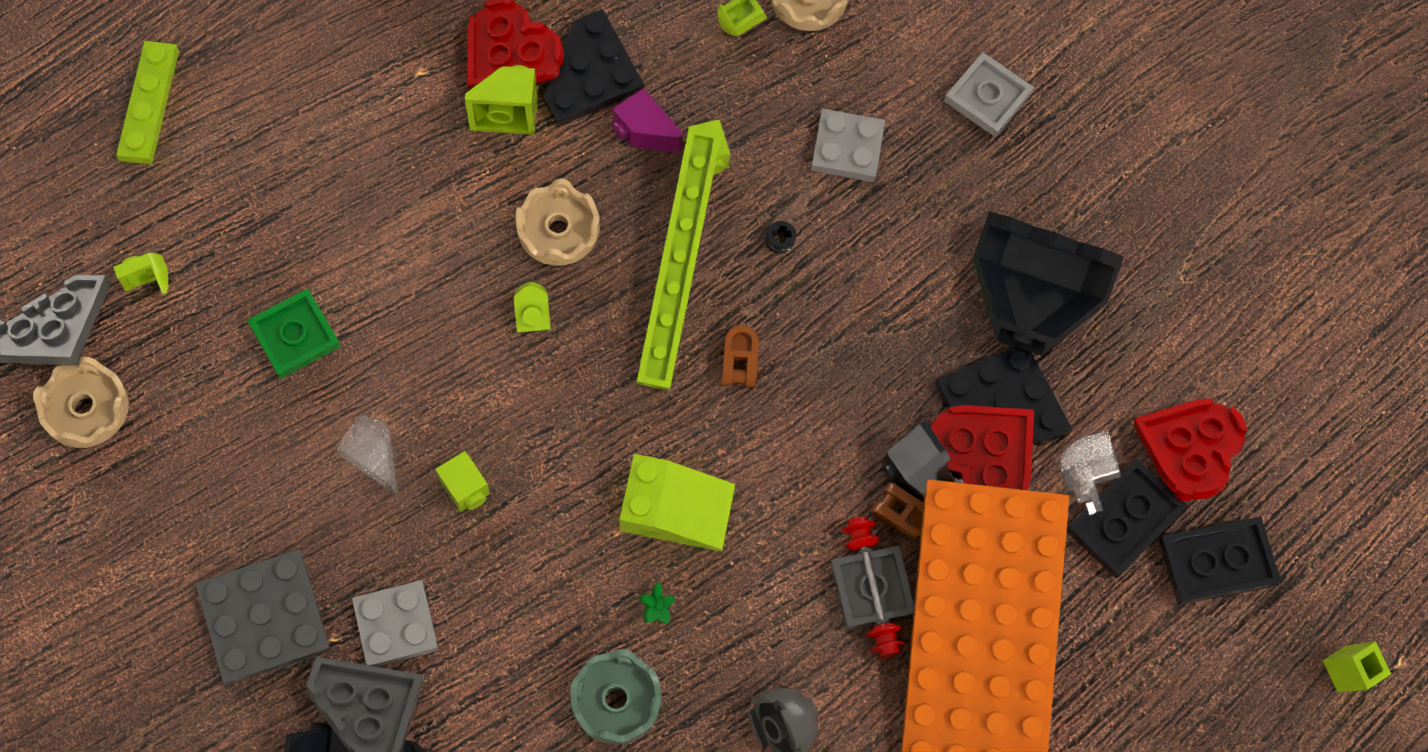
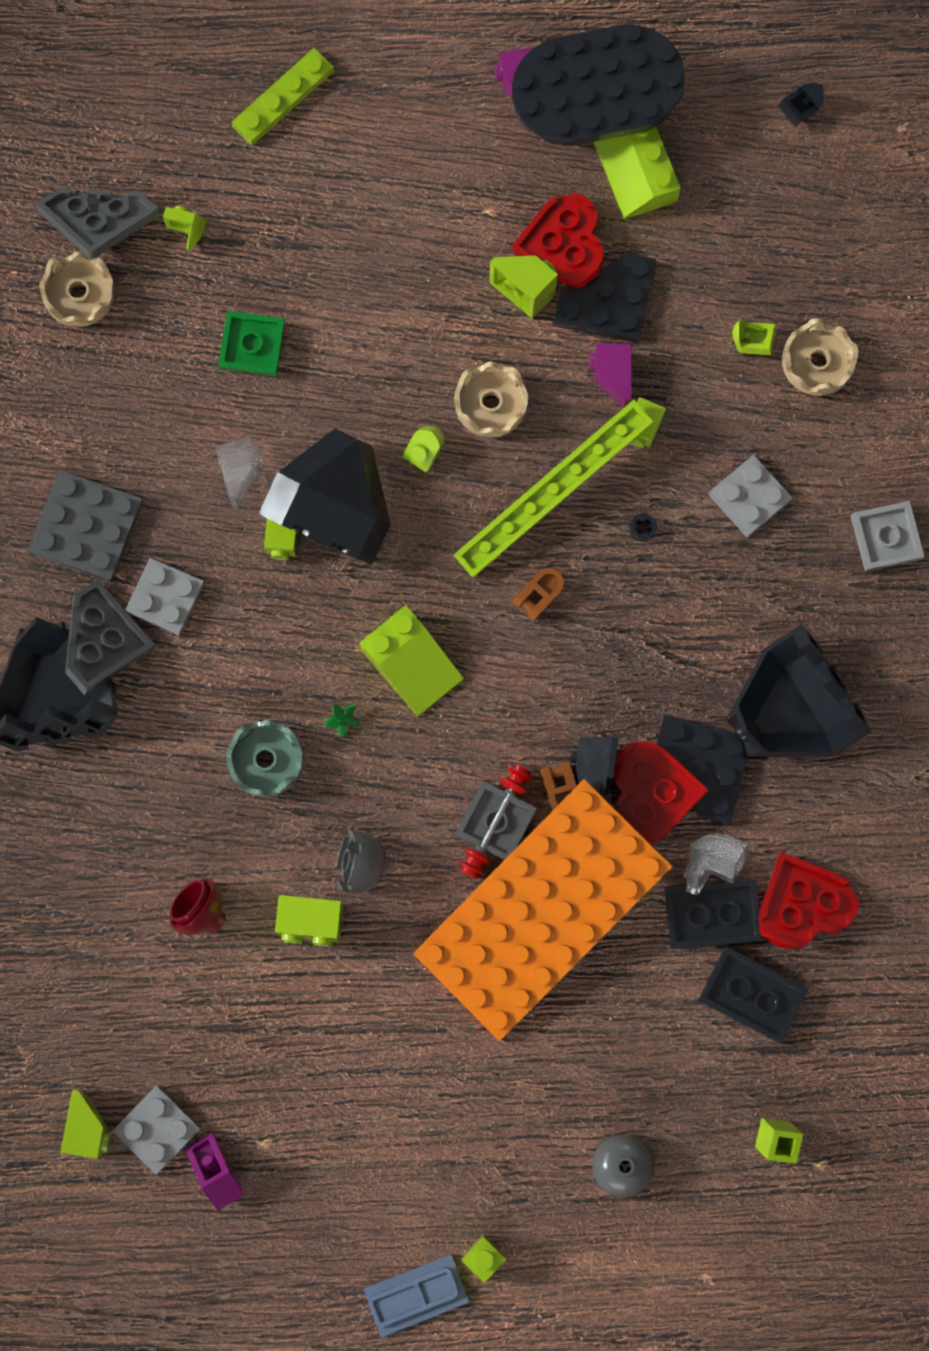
camera: 45 degrees right, 10 degrees up
(486, 409) = (333, 496): none -> black panel

